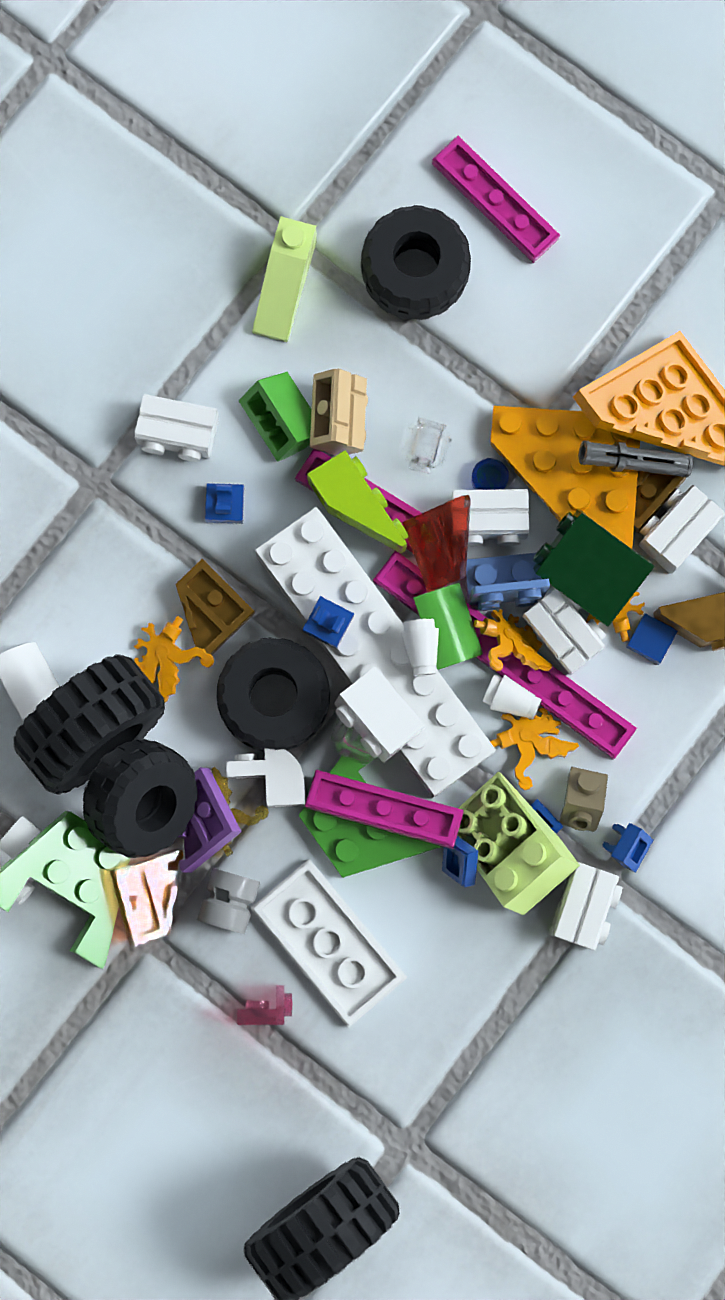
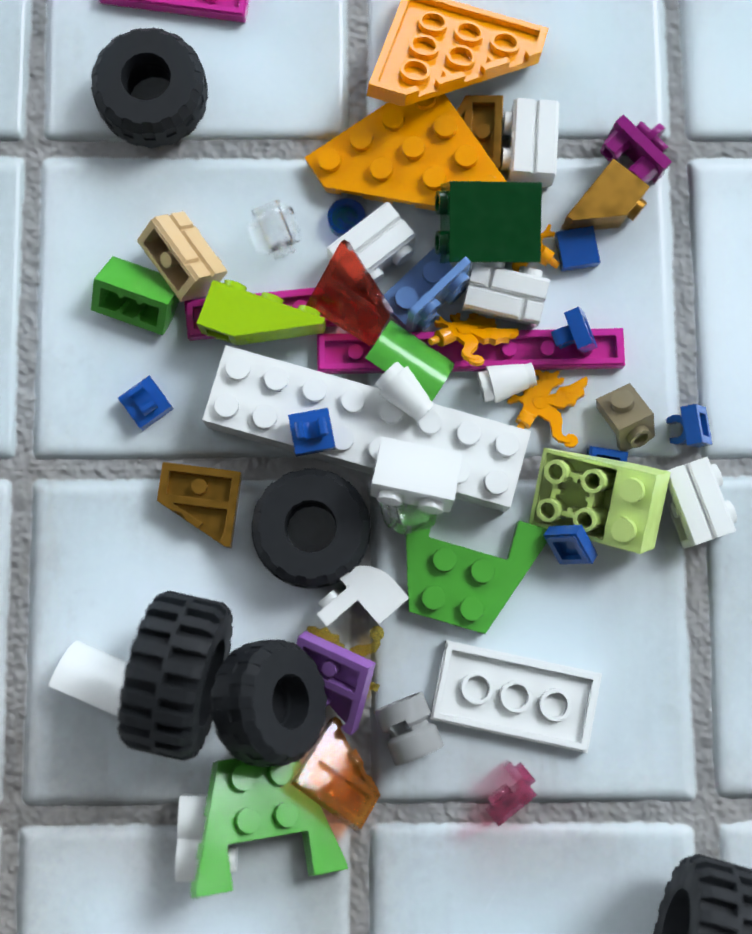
camera: 40 degrees left, 0 degrees up
(164, 652) = (193, 564): light orange piece -> none
(176, 427) = (55, 371): white brick -> none
(284, 278) = (50, 180): yellowish green slope -> none
(384, 809) = (477, 550): dark pink tile -> none
(594, 703) = (576, 331): none -> blue tile
(622, 457) = (443, 116): dark grey pin -> none

